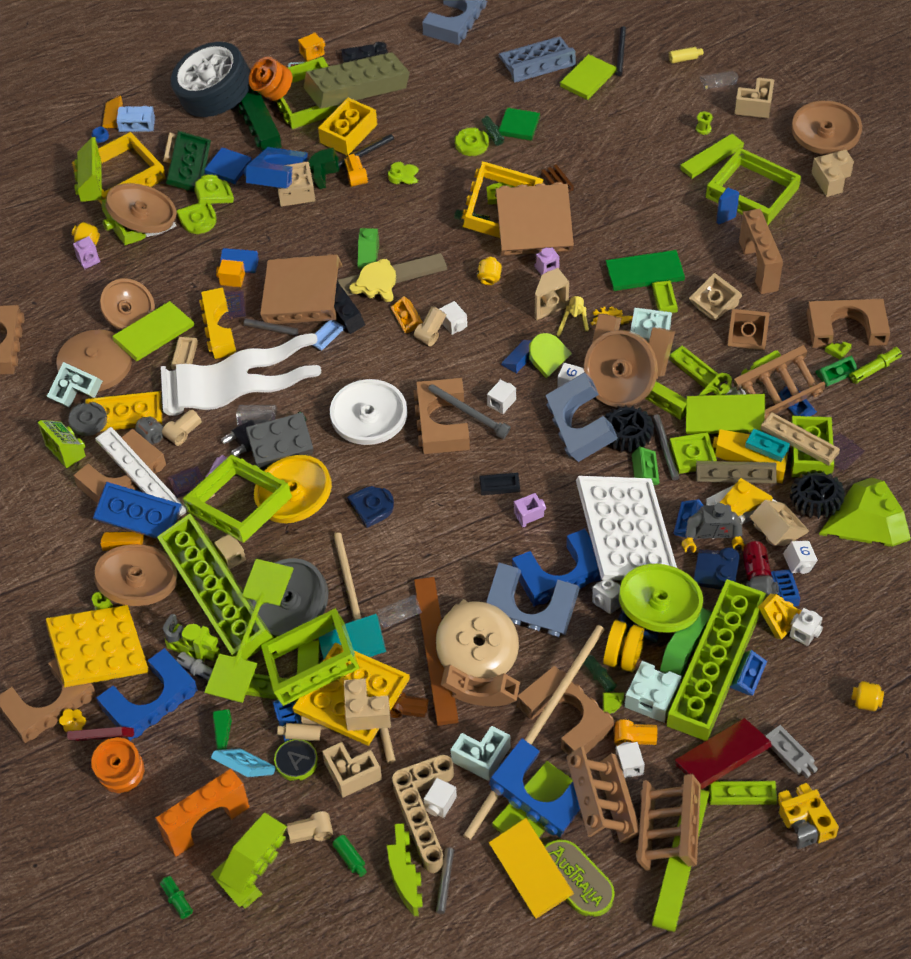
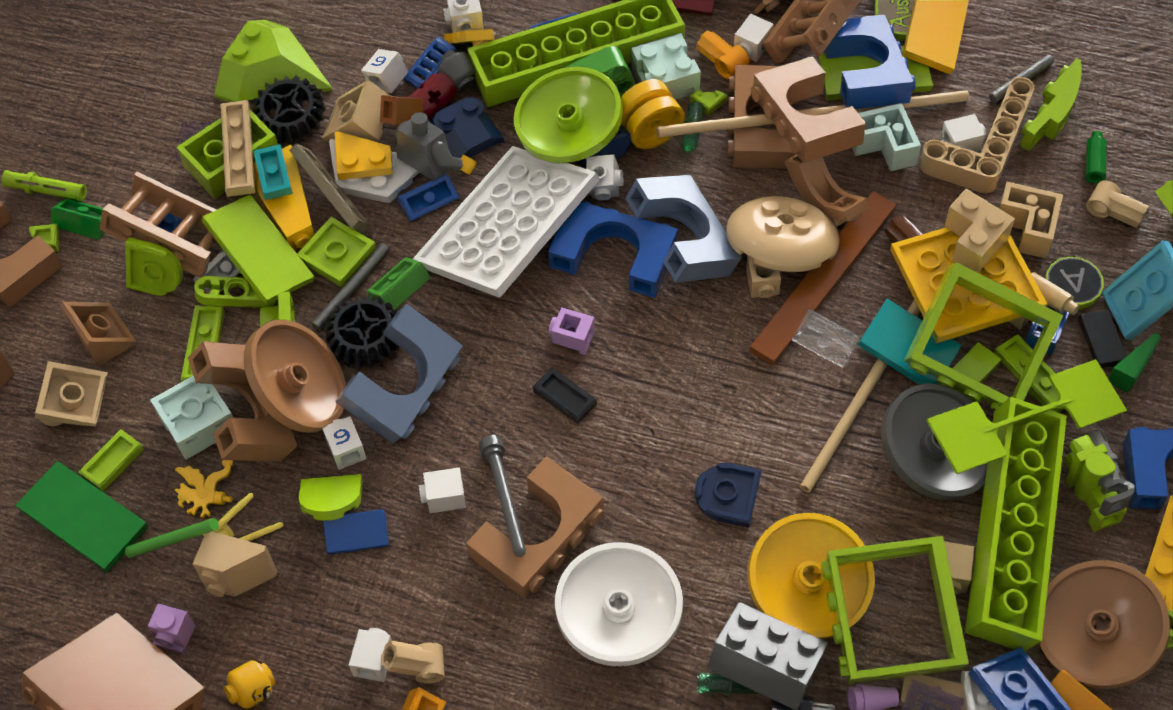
camera: 135 degrees left, 5 degrees up
(252, 738) = (1102, 338): none -> black tile
(514, 684) = (807, 134): none -> medium nougat arch
(585, 277) = (172, 538): none -> bright green bar
(751, 533) = (399, 109): none -> dark orange panel

